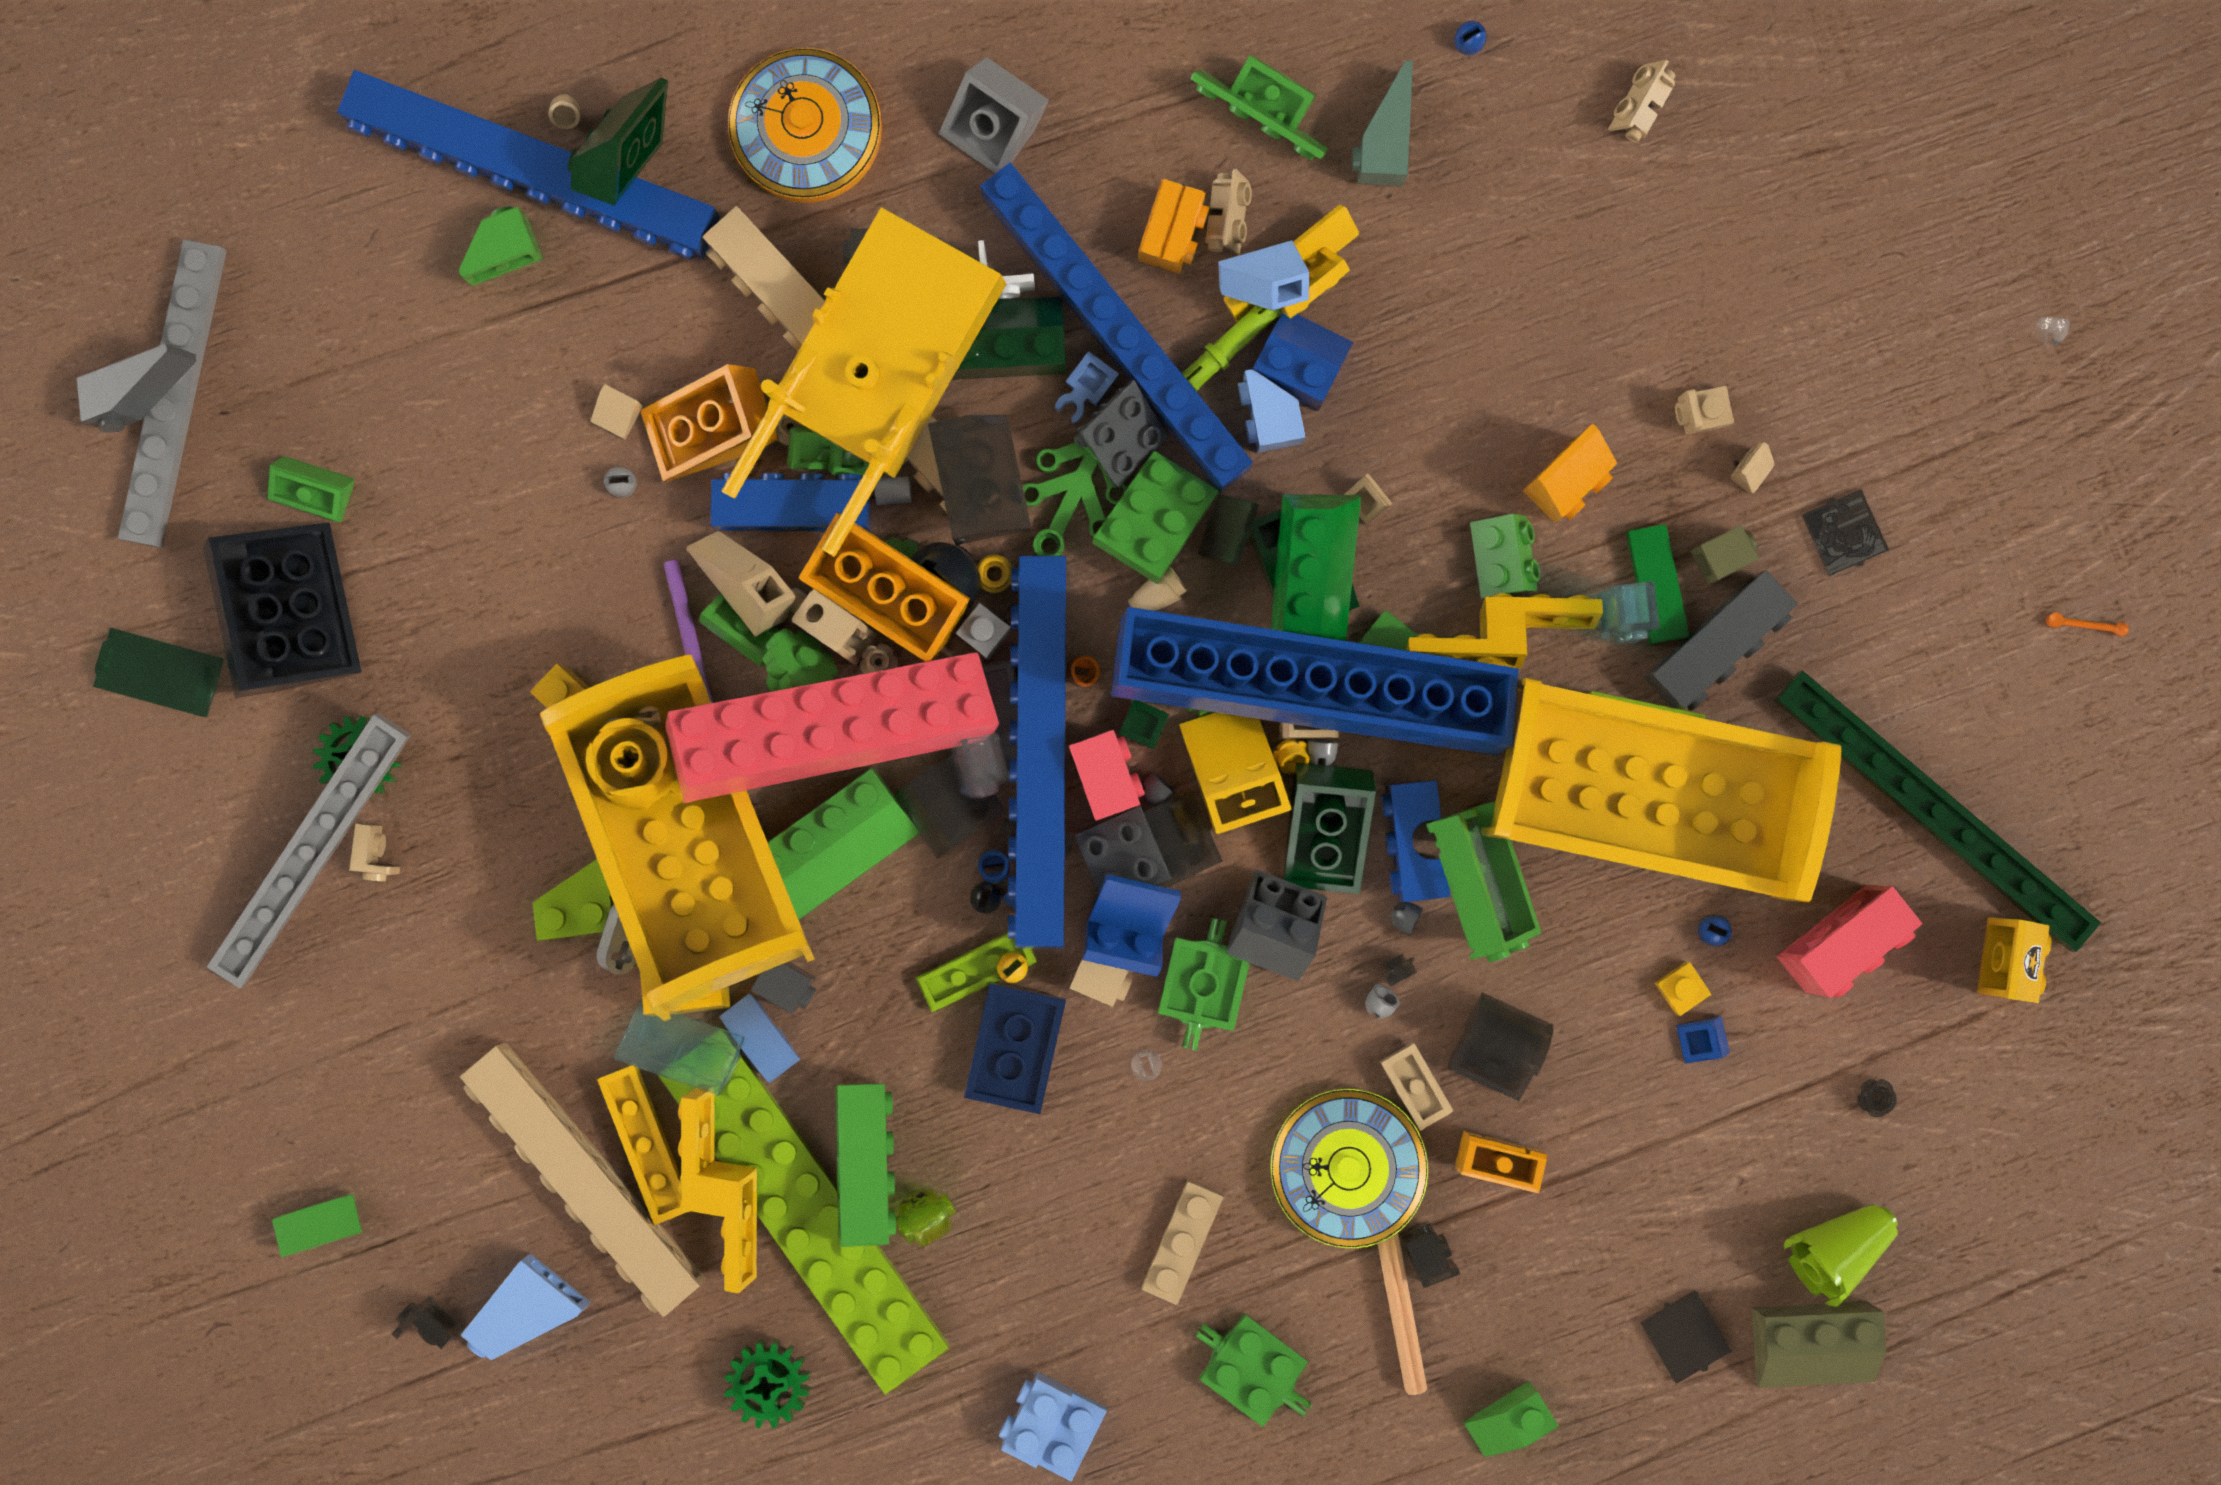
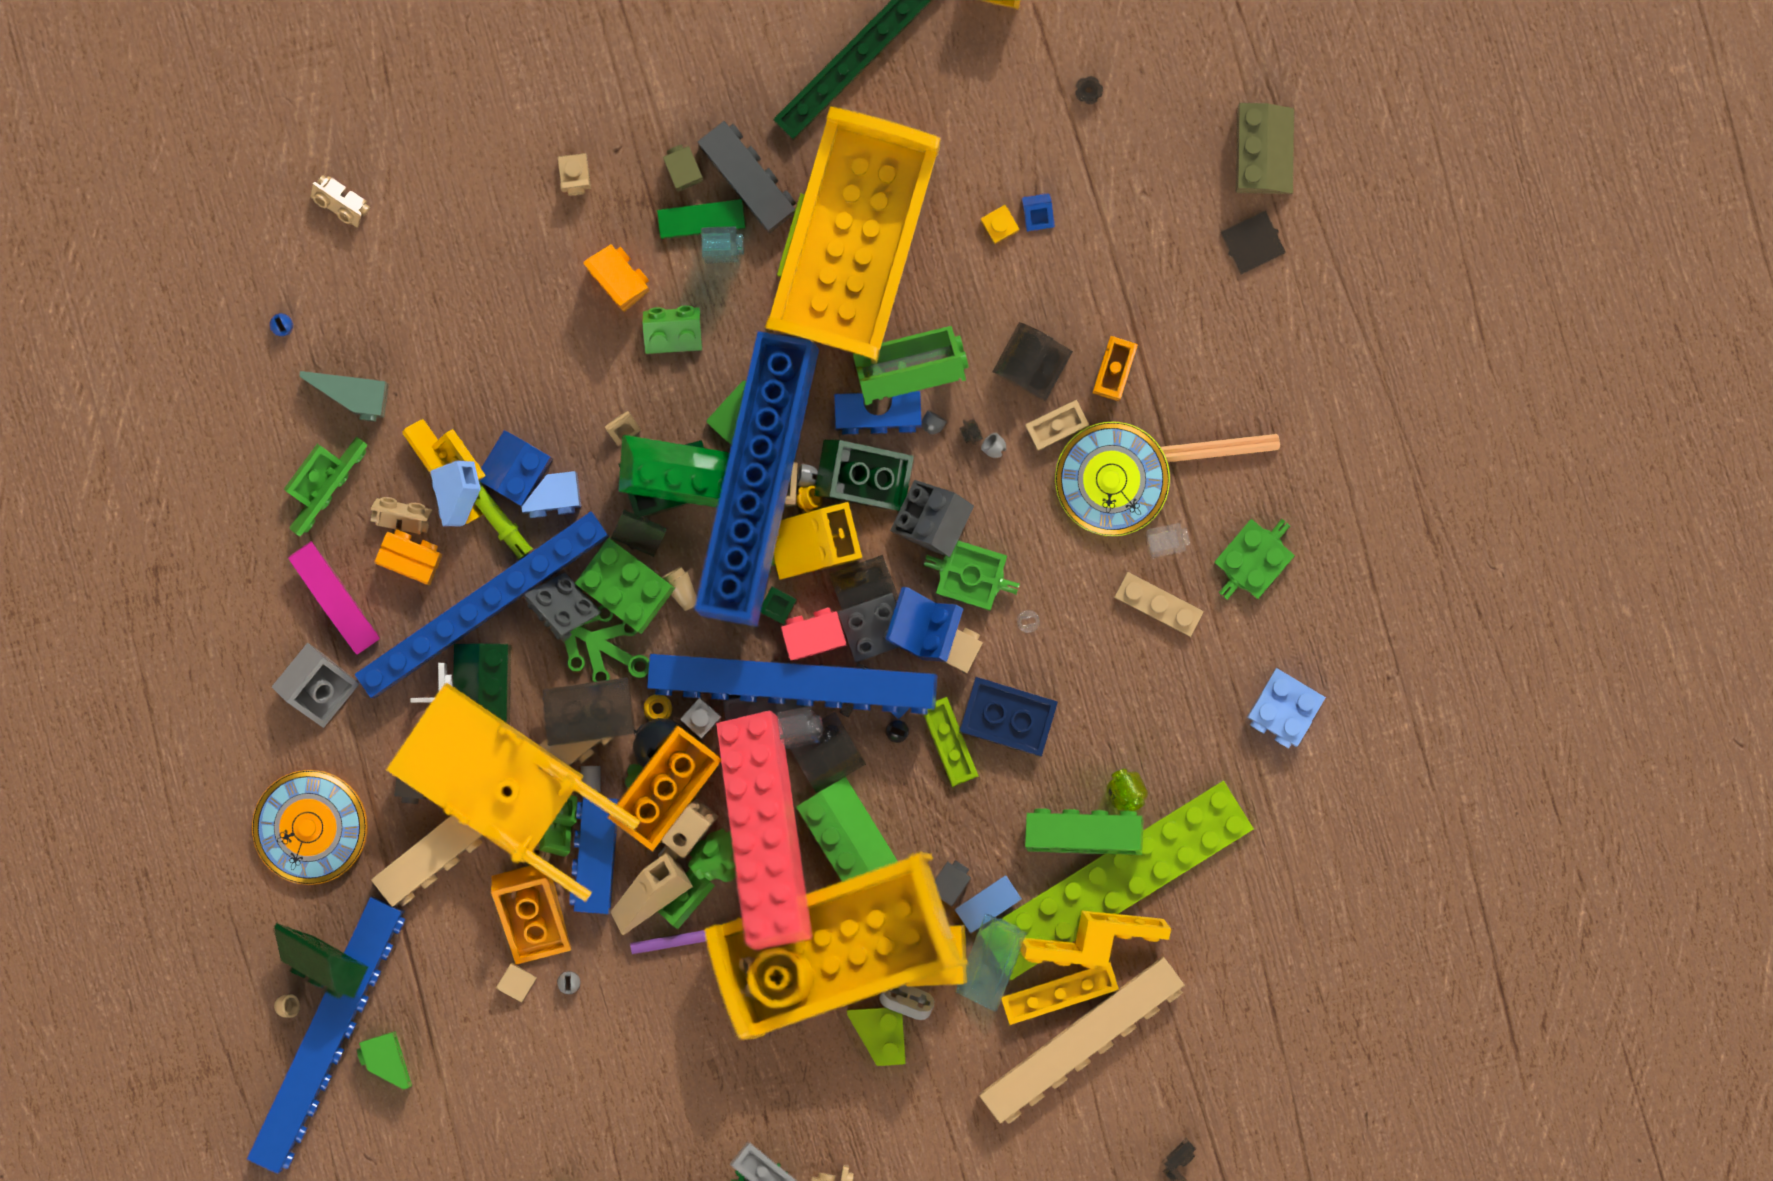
camera: 75 degrees left, 0 degrees up
(523, 1308) = (1173, 1090): light blue slope -> none
(558, 685) = (721, 1033): yellow brick -> none
(765, 1367) = (1252, 912): green gear -> none
(872, 653) = (711, 793): tan plate -> none
(993, 859) = (869, 723): blue hinge -> none
(1006, 960) = (943, 717): yellow hinge -> none
(1083, 662) = (728, 646): orange hinge -> none
(1089, 383) = (521, 627): medium blue plate -> none
(1111, 131) = (333, 597): none -> dark pink slope
(1156, 789) = (826, 599): dark grey hinge -> none
(1270, 1248) = (1167, 540): none -> clear brick
(1429, 1254) = (1179, 425): clear smoke brick -> none
(1504, 627) = (725, 335): yellow bracket -> none
(1511, 1422) = (1304, 375): bright green slope -> none
(1712, 938) = (965, 200): blue hinge -> none
(1753, 467) = (620, 141): tan slope -> none
(1841, 1251) = (1195, 126): lime cone -> none
(1845, 532) = (672, 77): clear smoke piece -> none
(1850, 941) = (973, 103): coral brick -> none

